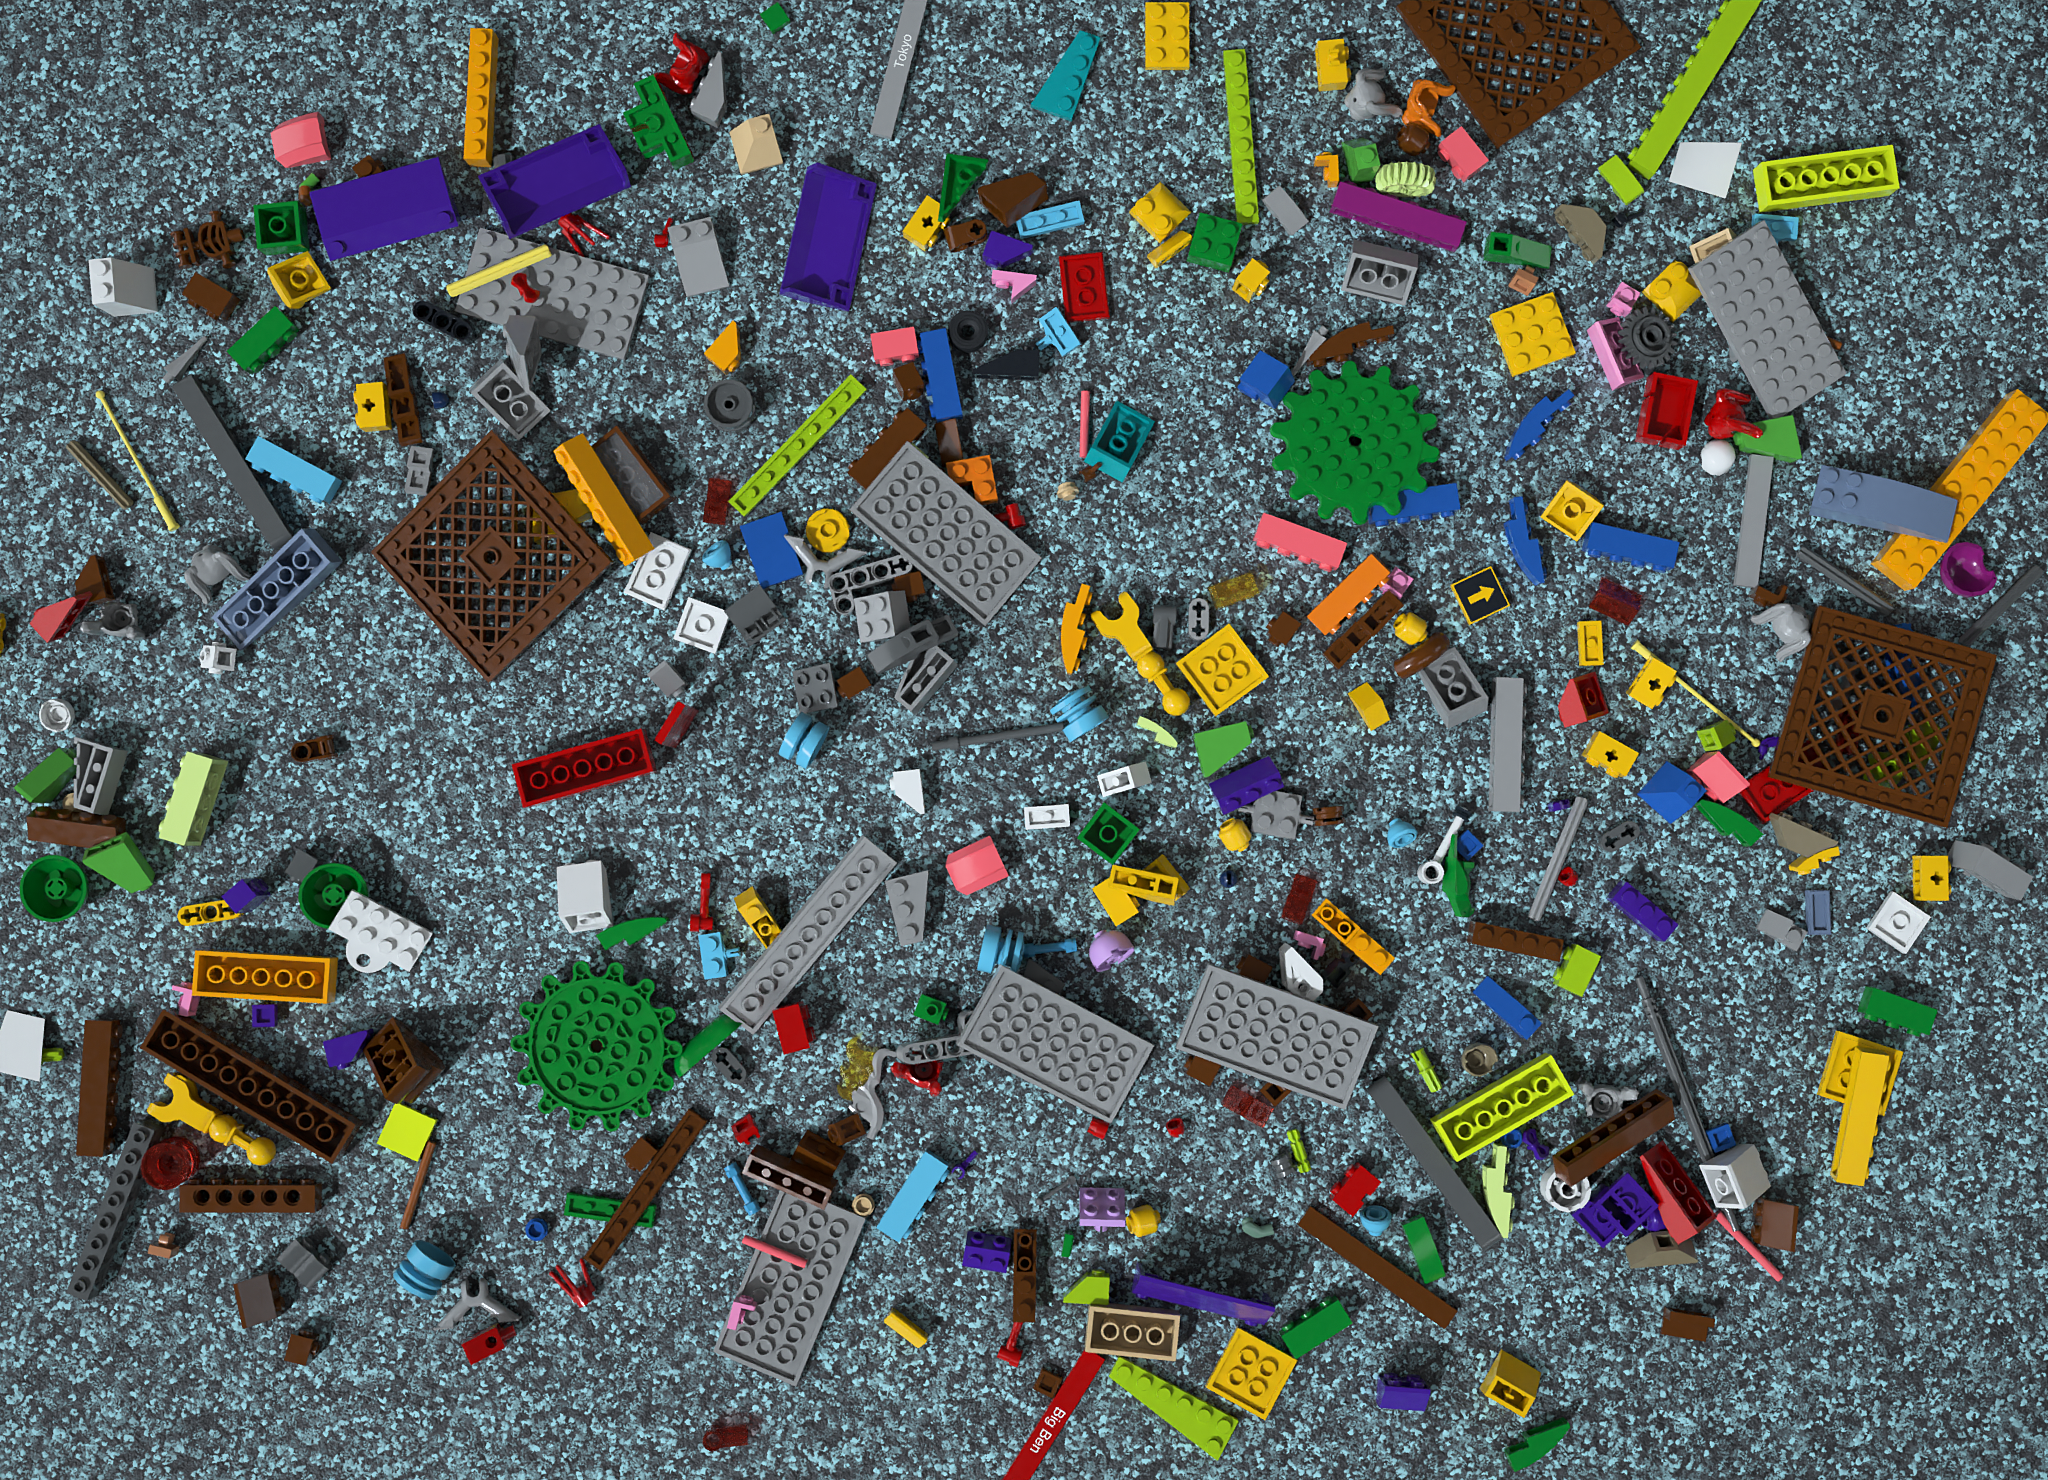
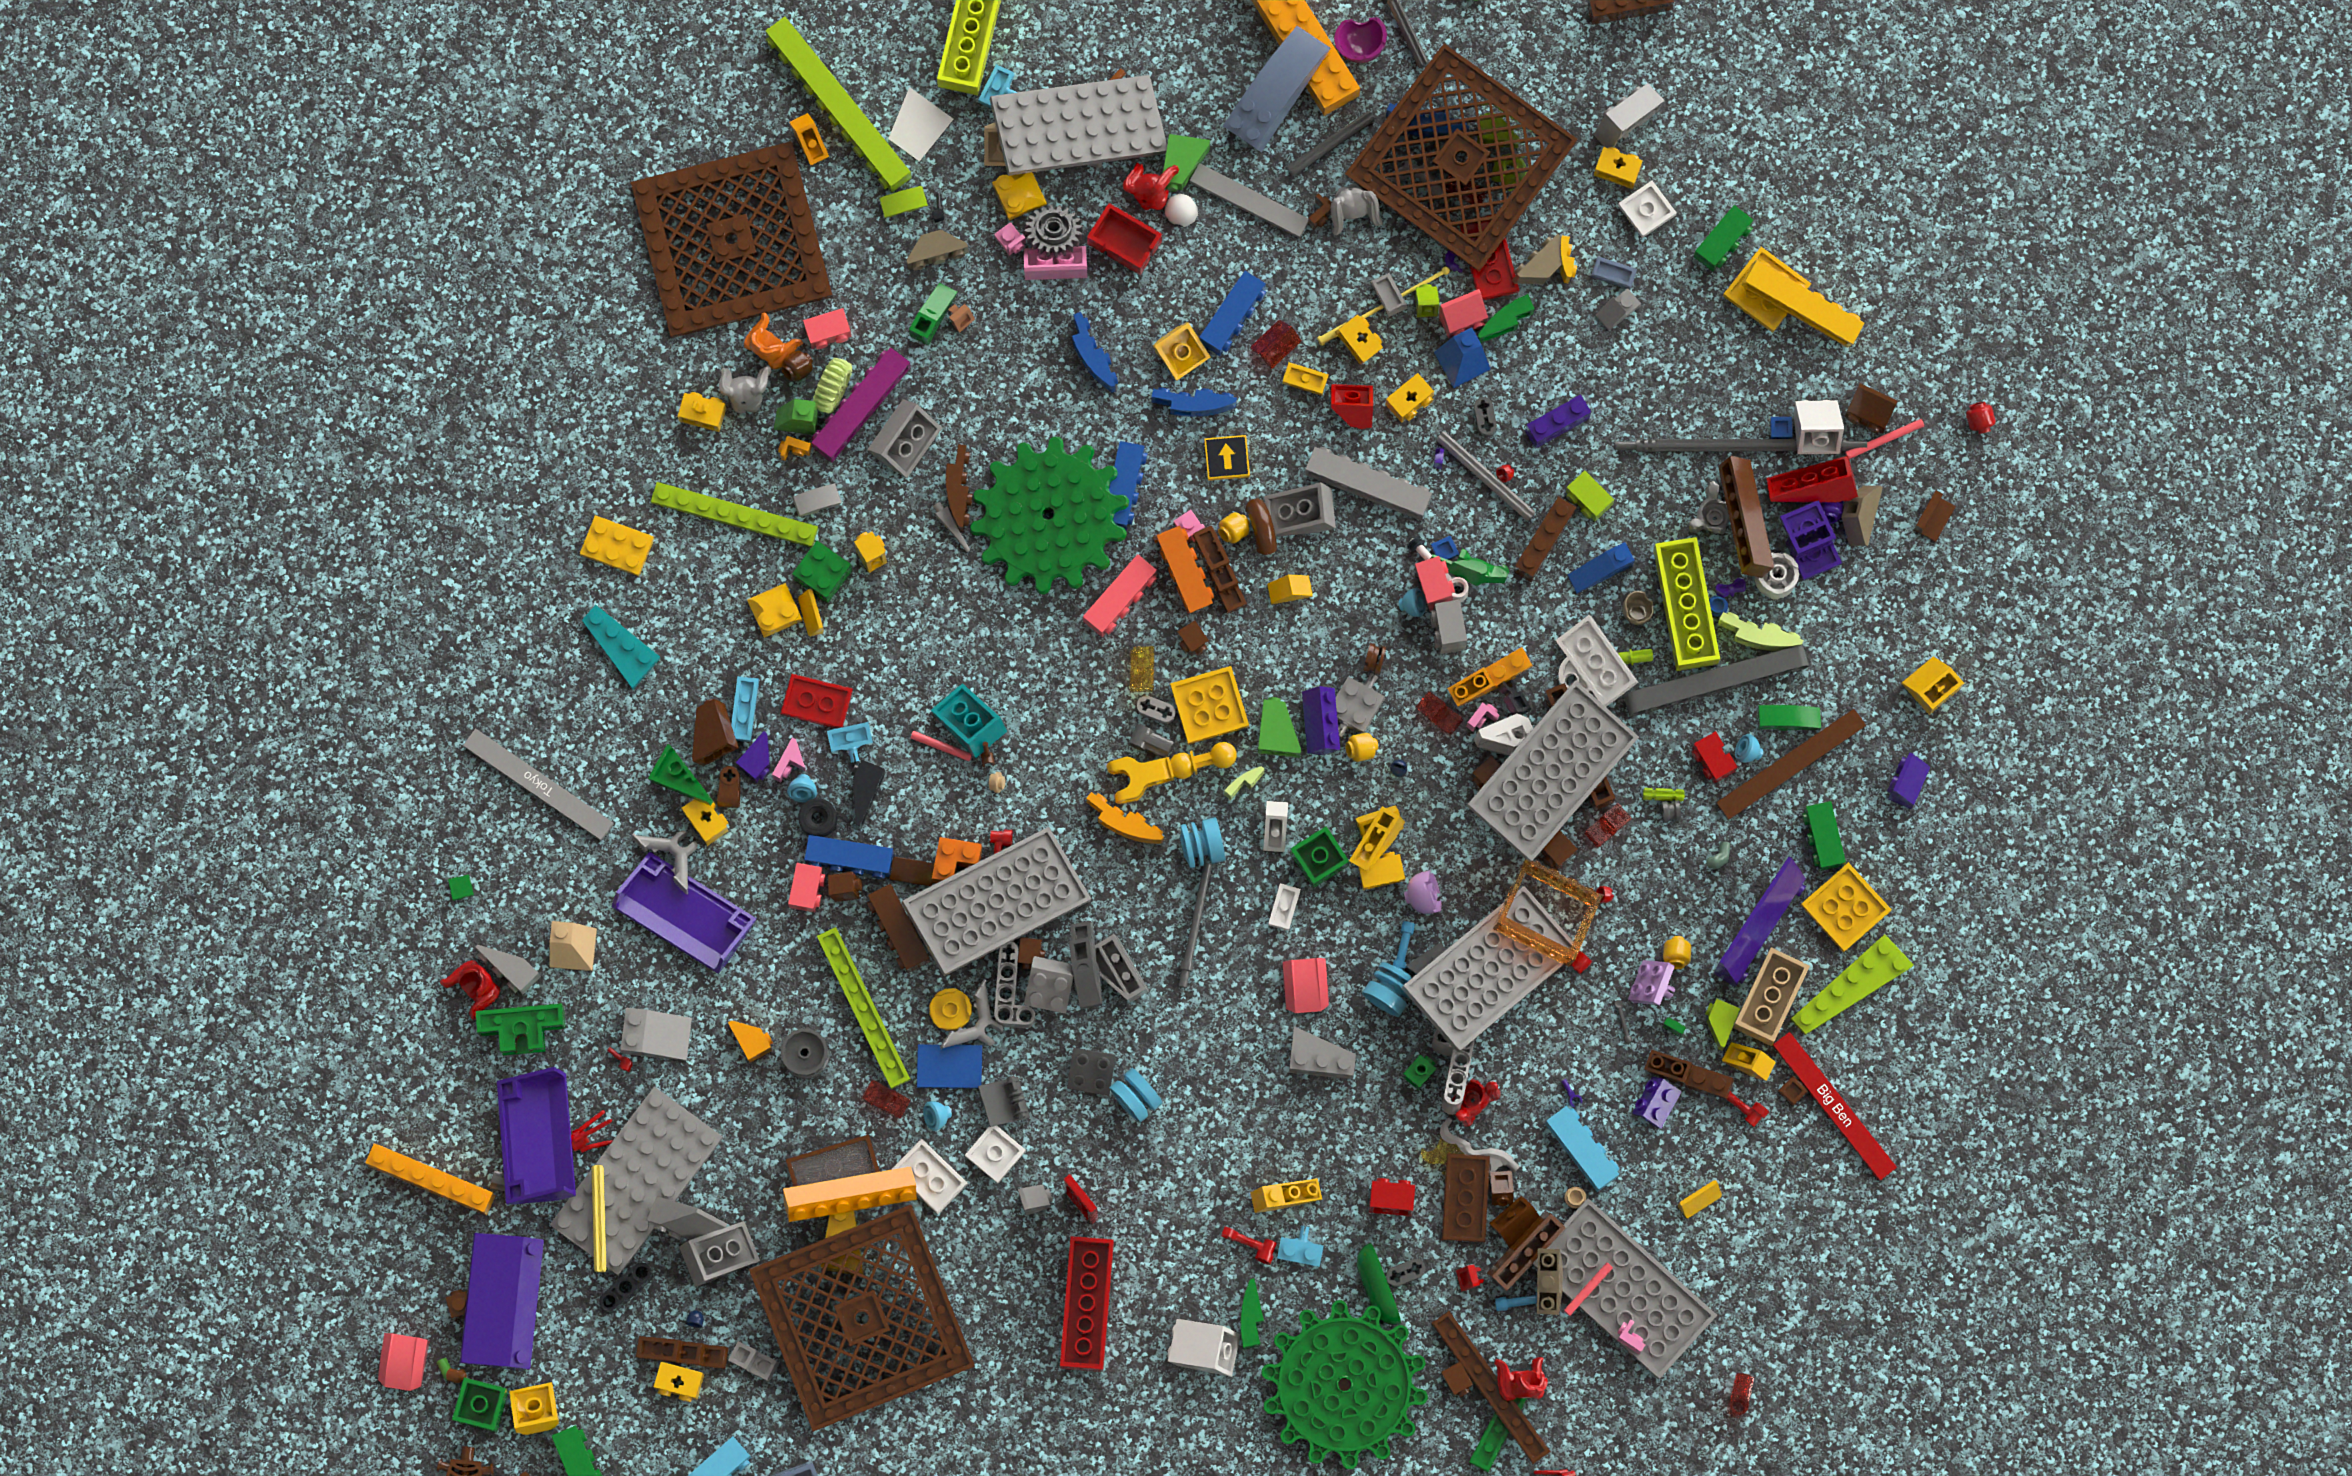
camera: 70 degrees left, 10 degrees down
(520, 282) = (618, 1202): red piece -> none
(658, 1220) = (1521, 1383): none -> red hair
(763, 1212) = (1549, 1281): none -> dark tan slope
(807, 934) = (1312, 1157): light grey plate -> none
(823, 1098) = (1465, 1197): none -> reddish brown tile
(853, 684) = (1100, 1035): reddish brown brick -> none
(883, 213) = (681, 854): none -> light grey piece
(909, 788) = (1214, 1019): white slope -> none
(991, 305) = (802, 789): none -> medium azure brick
(1060, 1329) = (1749, 1061): none -> yellow slope
(1100, 1074) = (1535, 940): none -> clear orange window
(1266, 380) = (964, 571): blue plate -> none
(1389, 878) = (1449, 626): none -> light grey brick
(1406, 1035) = (1594, 662): none -> white plate
(1428, 847) = (1434, 581): none -> coral slope
(1532, 334) = (1011, 327): yellow plate -> none
(1536, 1443) = (1994, 683): green slope -> none
(1649, 63) = (809, 138): none -> light orange slope
(1709, 695) = (1389, 294): none -> light grey tile
(1808, 1337) = (1980, 417): none -> red head

